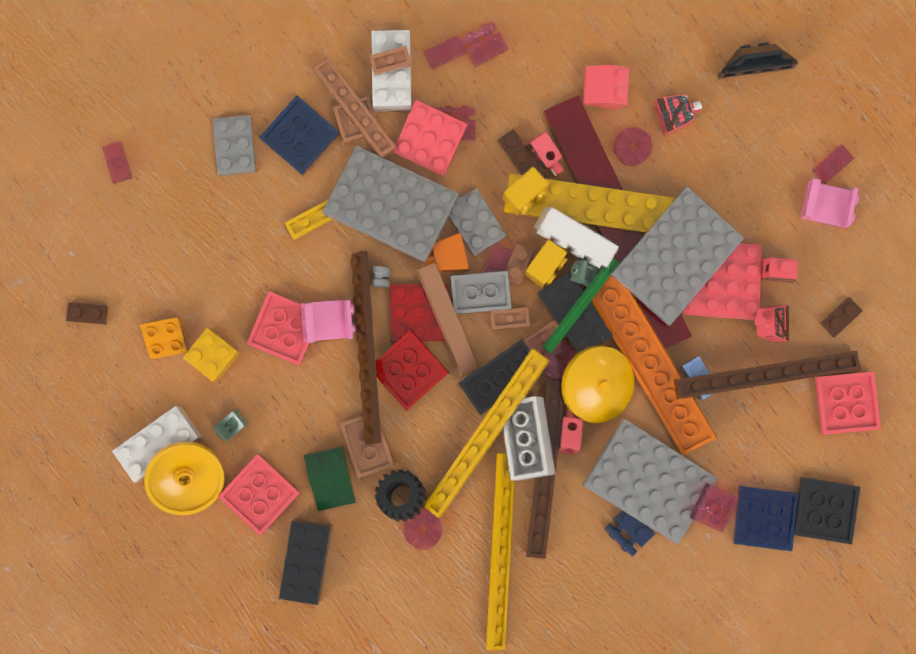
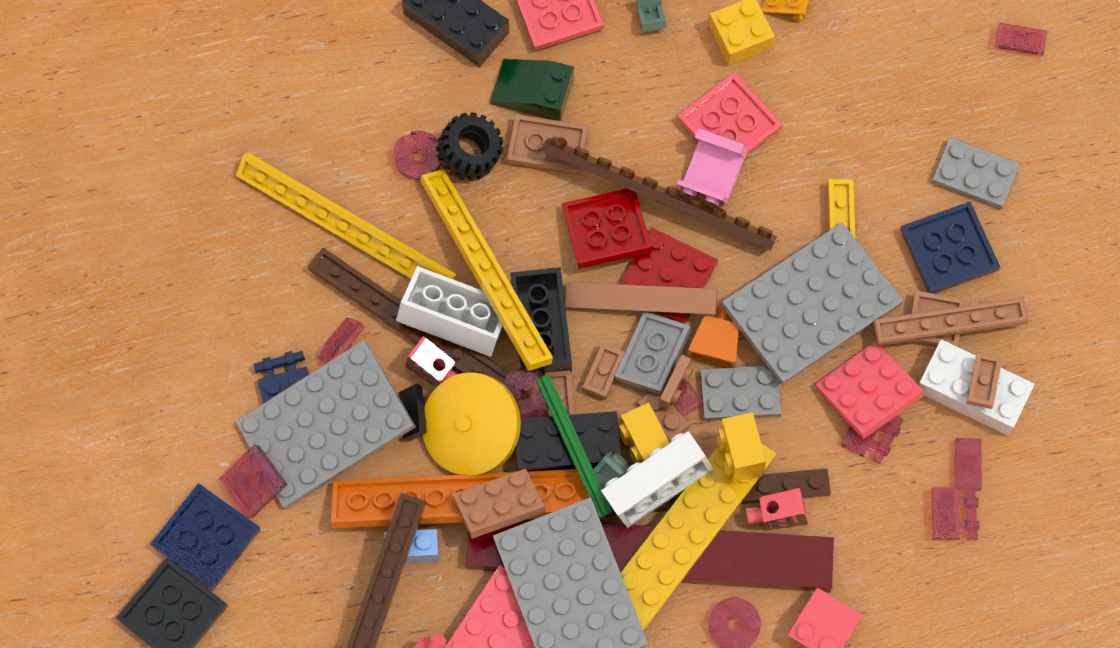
camera: 115 degrees right, 15 degrees down
(381, 277) = (732, 253): light grey wheel -> none
(488, 263) = (671, 392): none -> nougat plate
(585, 506) = (340, 340): none -> clear pink plate
(605, 430) = (414, 404): none -> black tile
(645, 333) = (498, 503): none -> nougat plate

